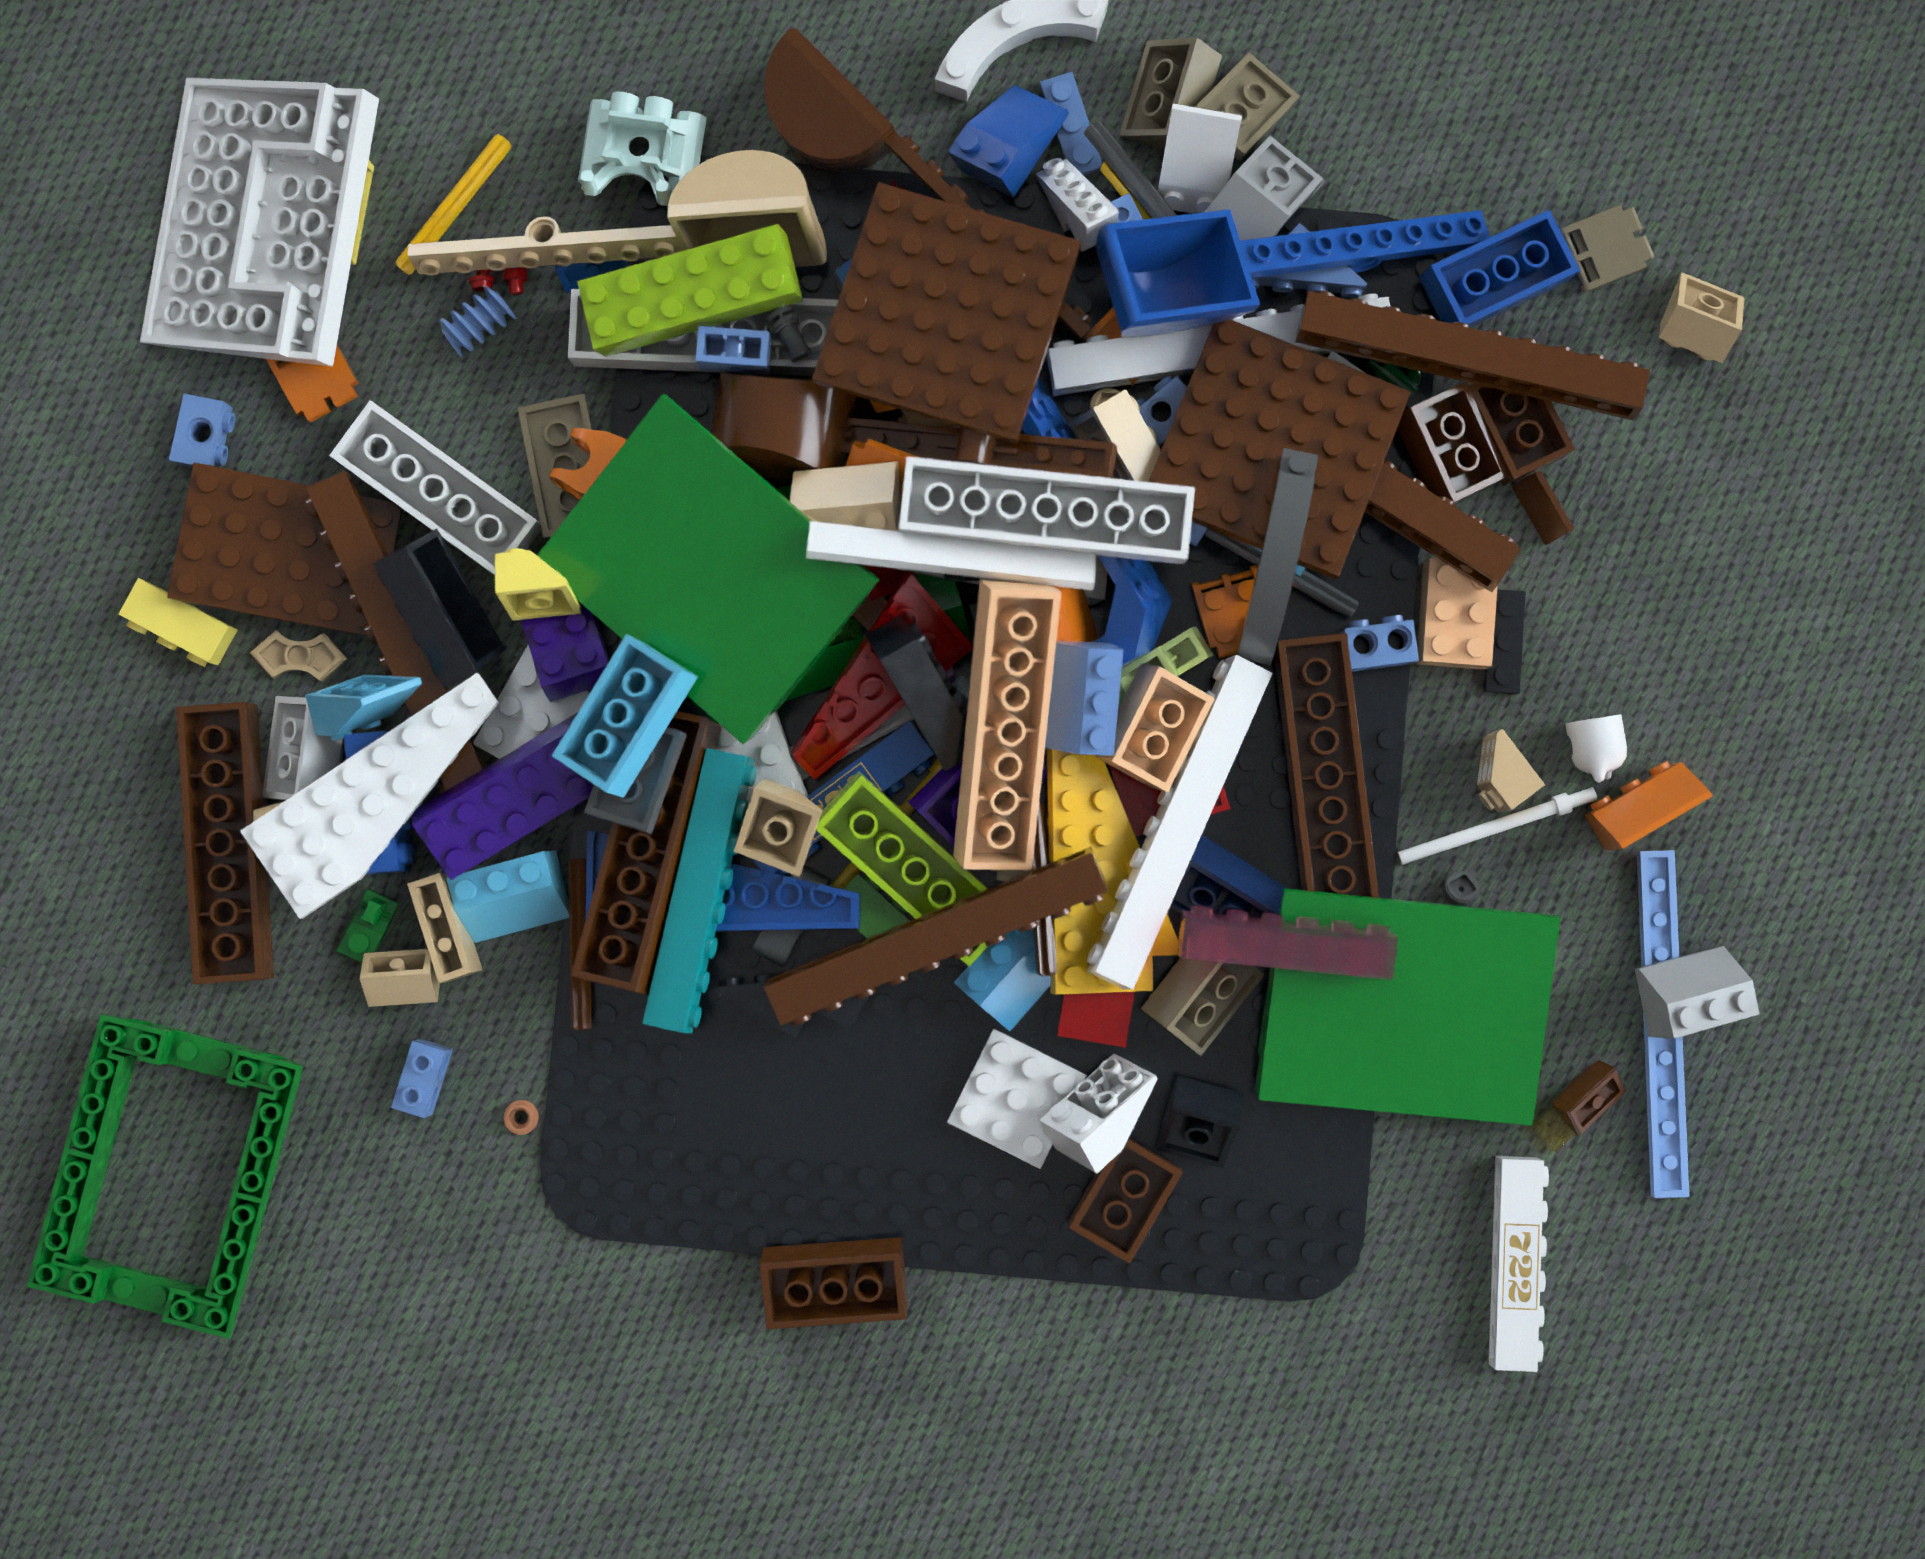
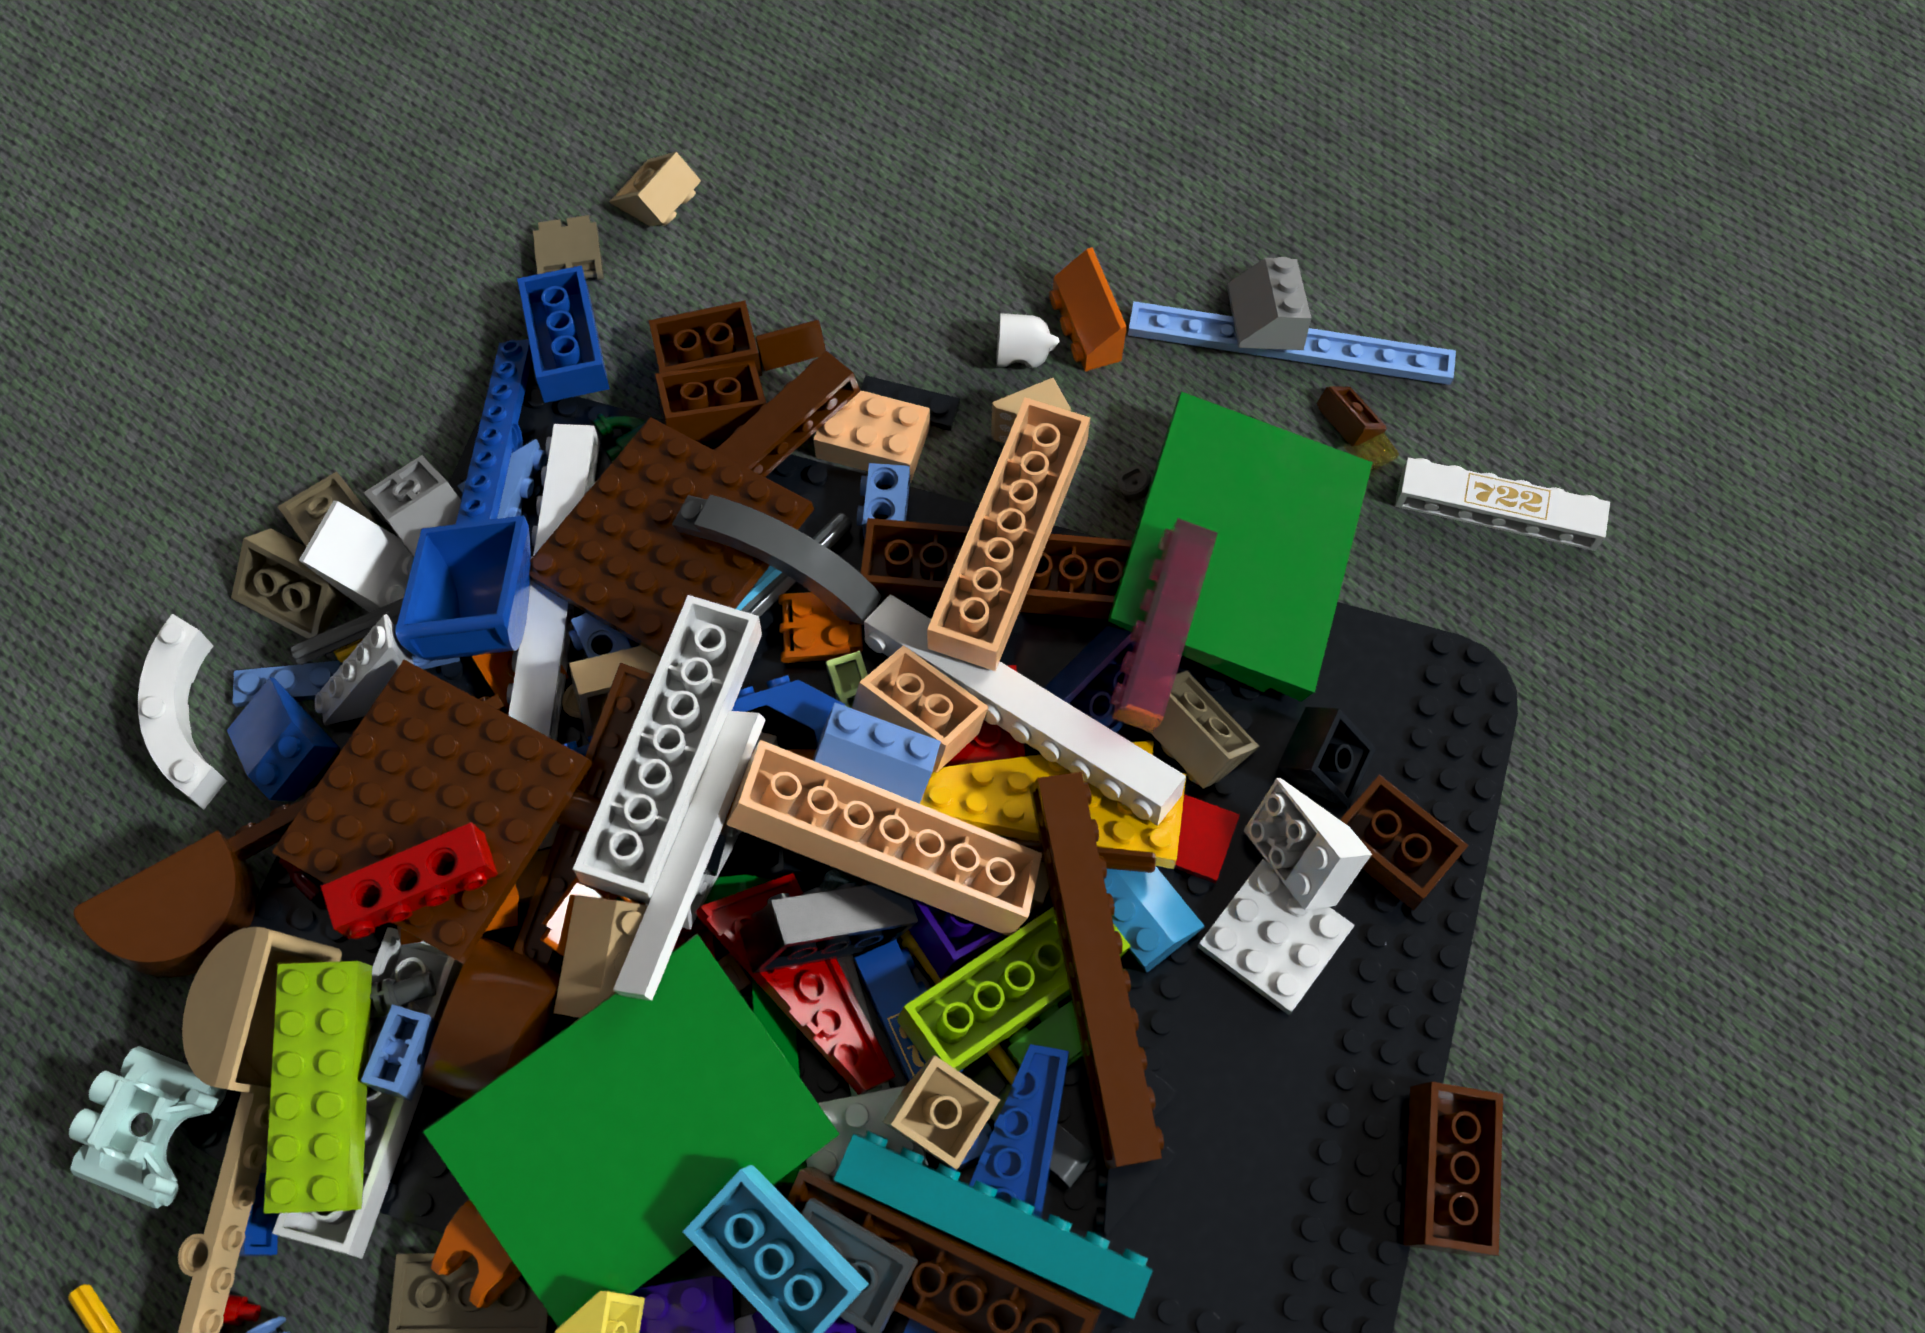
camera: 80 degrees left, 20 degrees down
(842, 268) = (350, 895): none -> red brick
(1353, 776) = (1008, 534): none -> light nougat brick
(1472, 355) = (629, 364): reddish brown brick -> none
(1560, 805) = (1072, 388): white bar -> none

